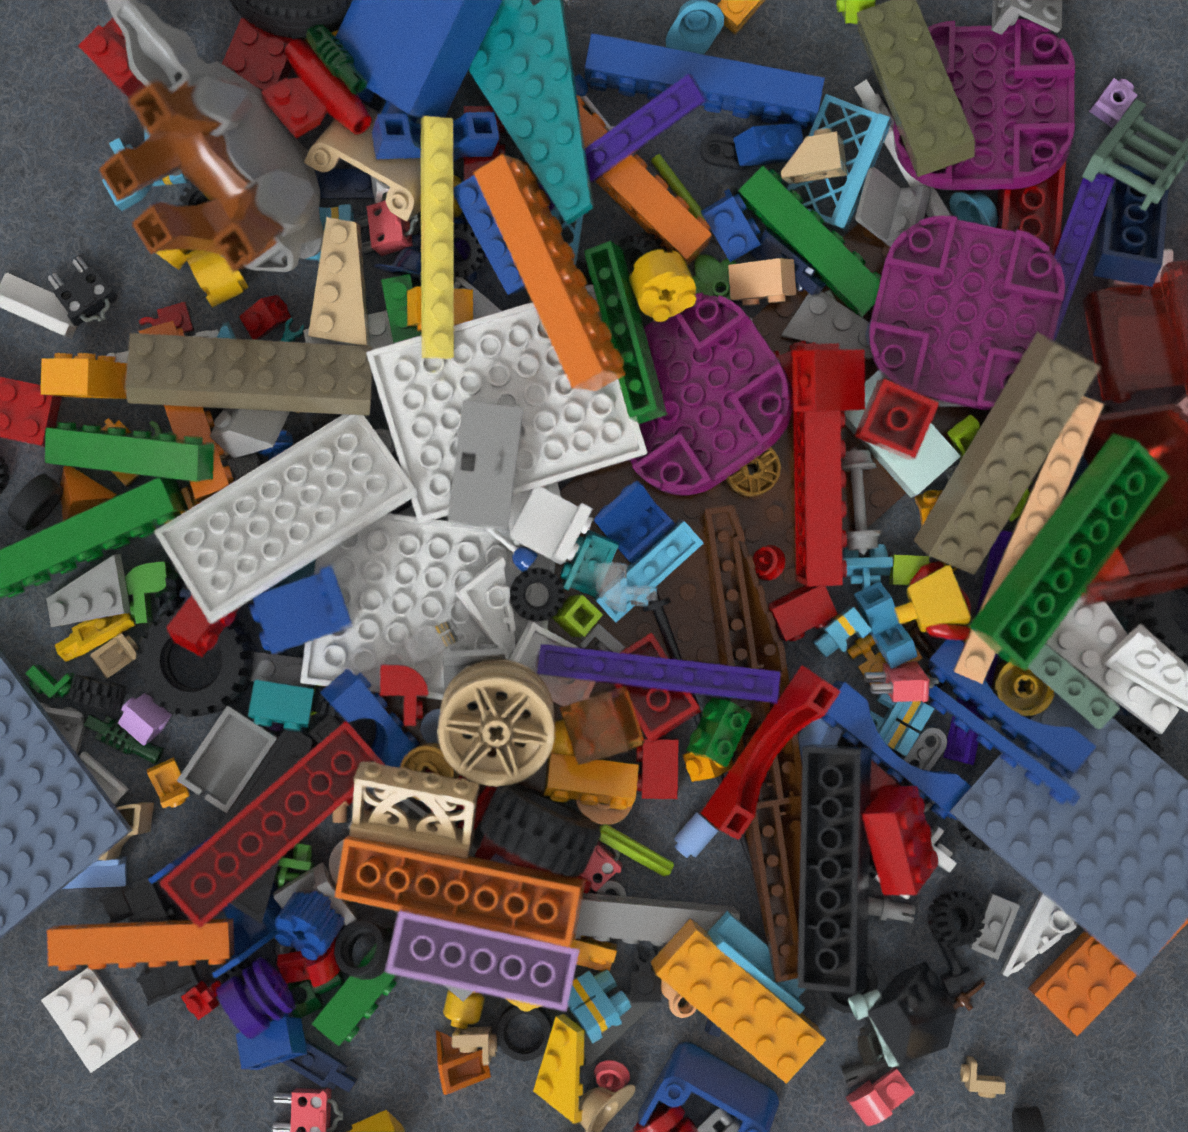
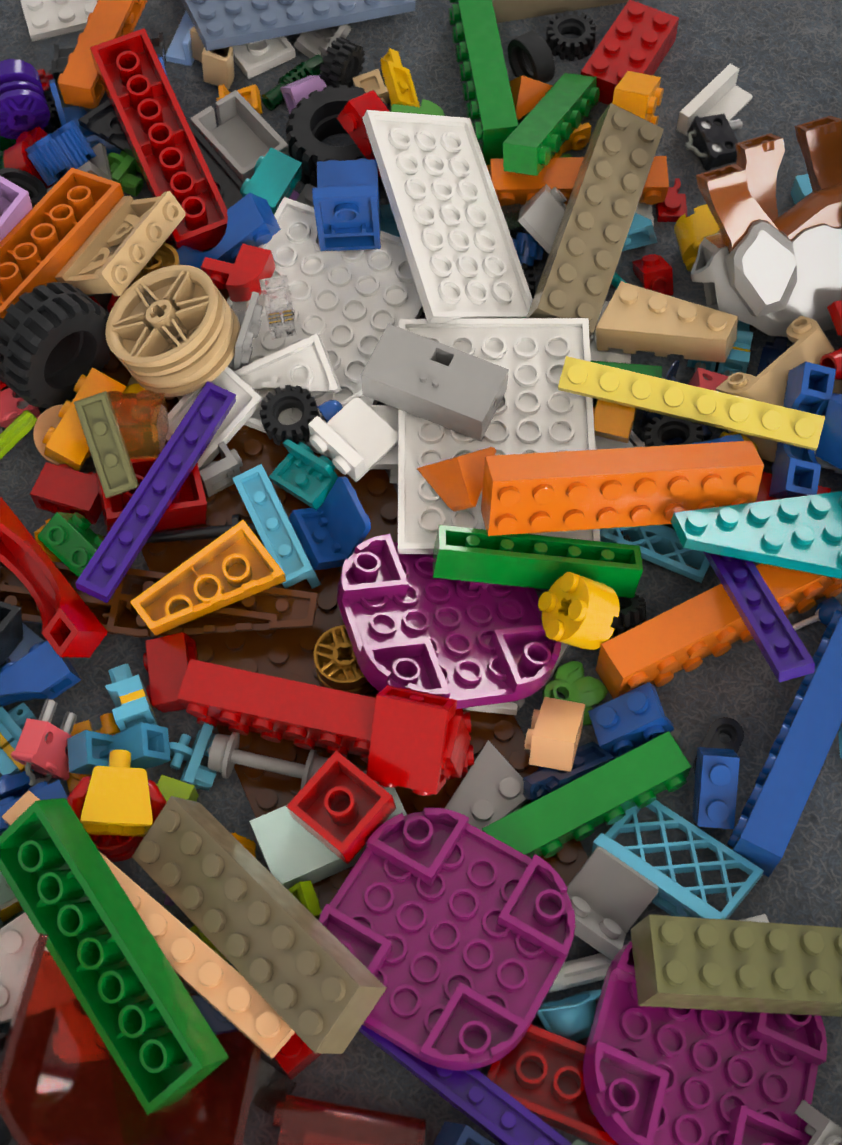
camera: 105 degrees right, 25 degrees down
(43, 682) = (369, 37): green bracket -> none
(91, 596) = (431, 82): light grey wing -> none
(568, 417) = (458, 478): none -> orange slope
(577, 616) = (254, 448): lime brick -> none
(612, 587) = (262, 474): clear brick -> none
(641, 728) = (106, 444): none -> olive tile
(676, 185) = (696, 686): lime bar -> none
(730, 596) = (213, 578): none -> light orange wedge
(769, 562) = (238, 653): red hat -> none
(817, 158) = (686, 826): tan slope -> none

